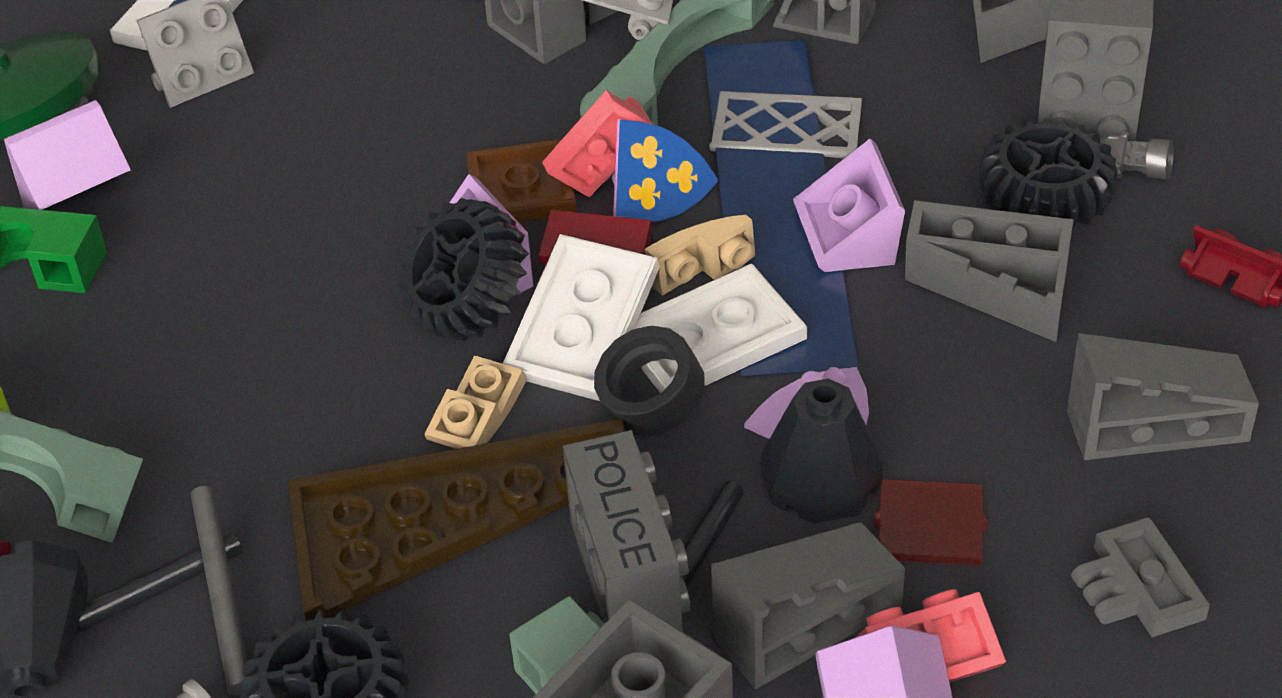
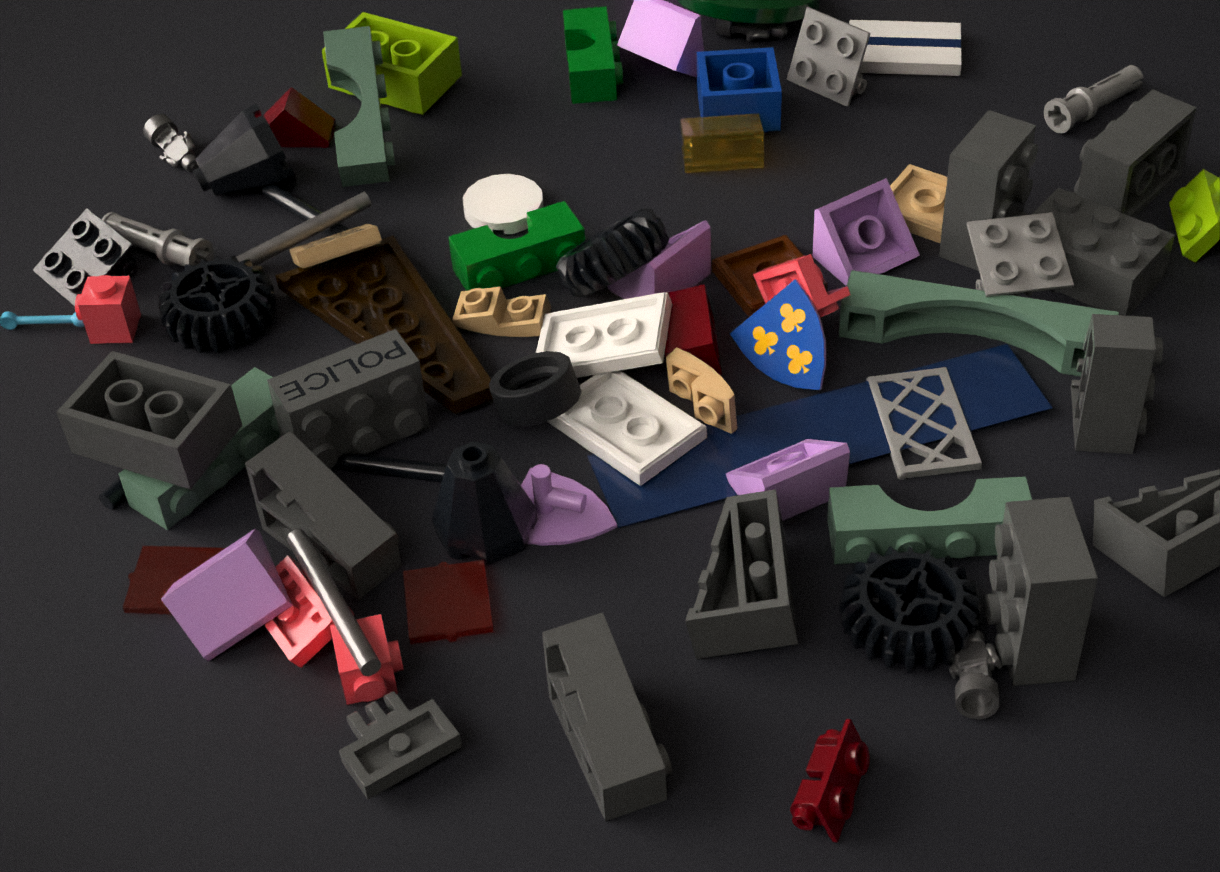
camera: 75 degrees right, 0 degrees up
(204, 129) = (740, 84): none -> blue brick
(263, 378) = (502, 202): none -> white tile
(276, 167) = (722, 143): none -> clear yellow hinge
(286, 535) = (335, 245): none -> tan tile
(379, 369) = (492, 261): none -> green arch
(463, 50) = (921, 200): none -> tan tile
(511, 97) = (862, 233): none -> lavender slope
(948, 105) = (870, 521): none -> sand green arch
(960, 583) = (334, 603): none -> flat silver bar
(1025, 589) = (355, 684): none -> coral brick

